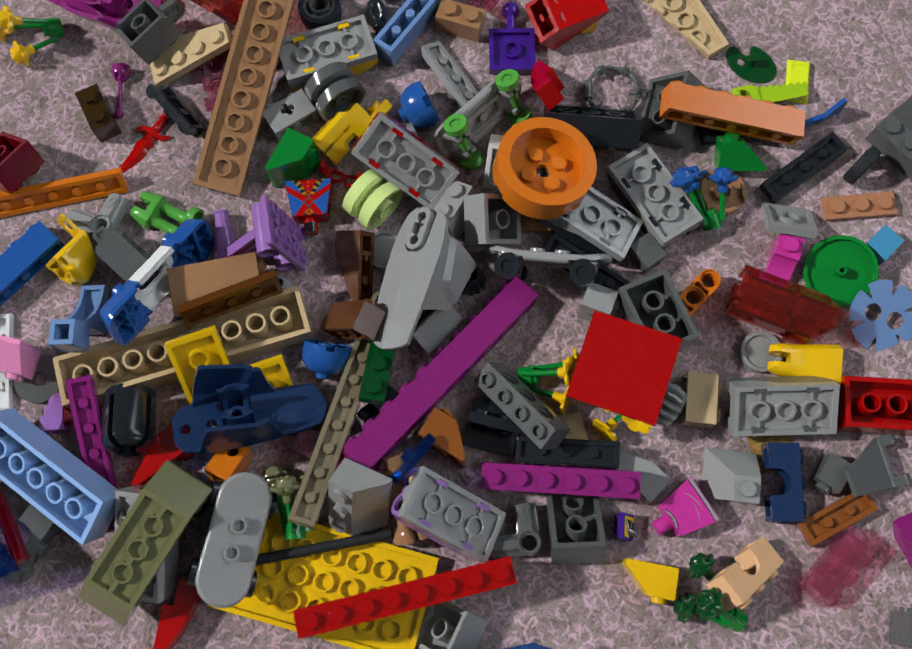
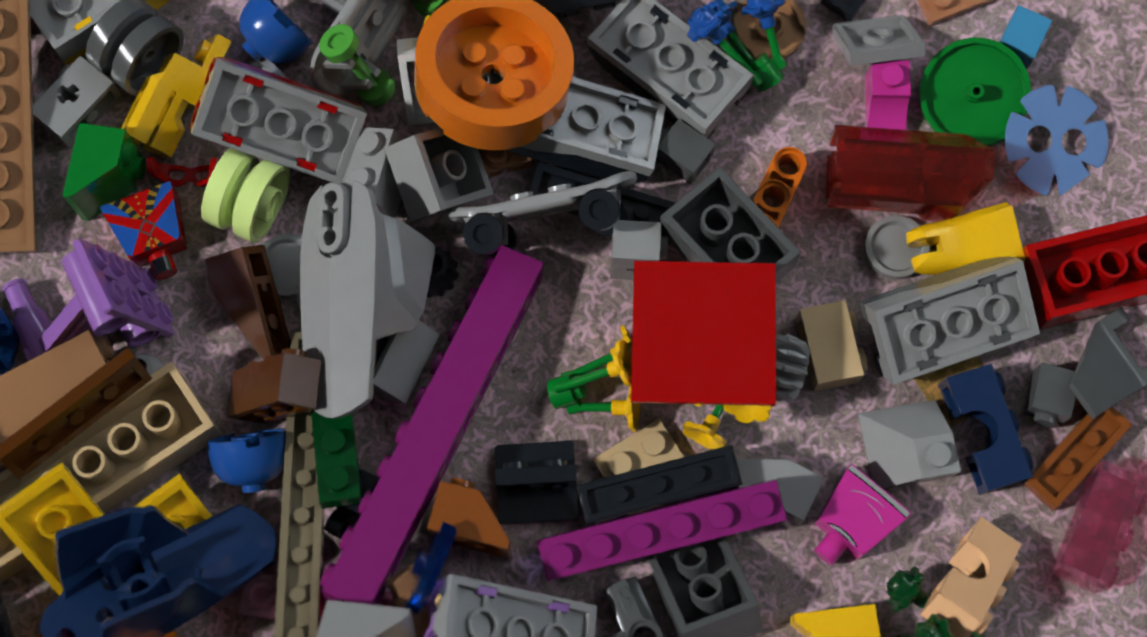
camera: 20 degrees left, 0 degrees up
(522, 405) = (570, 436): dark grey brick -> none
(624, 527) = (776, 569): dark purple slope -> none

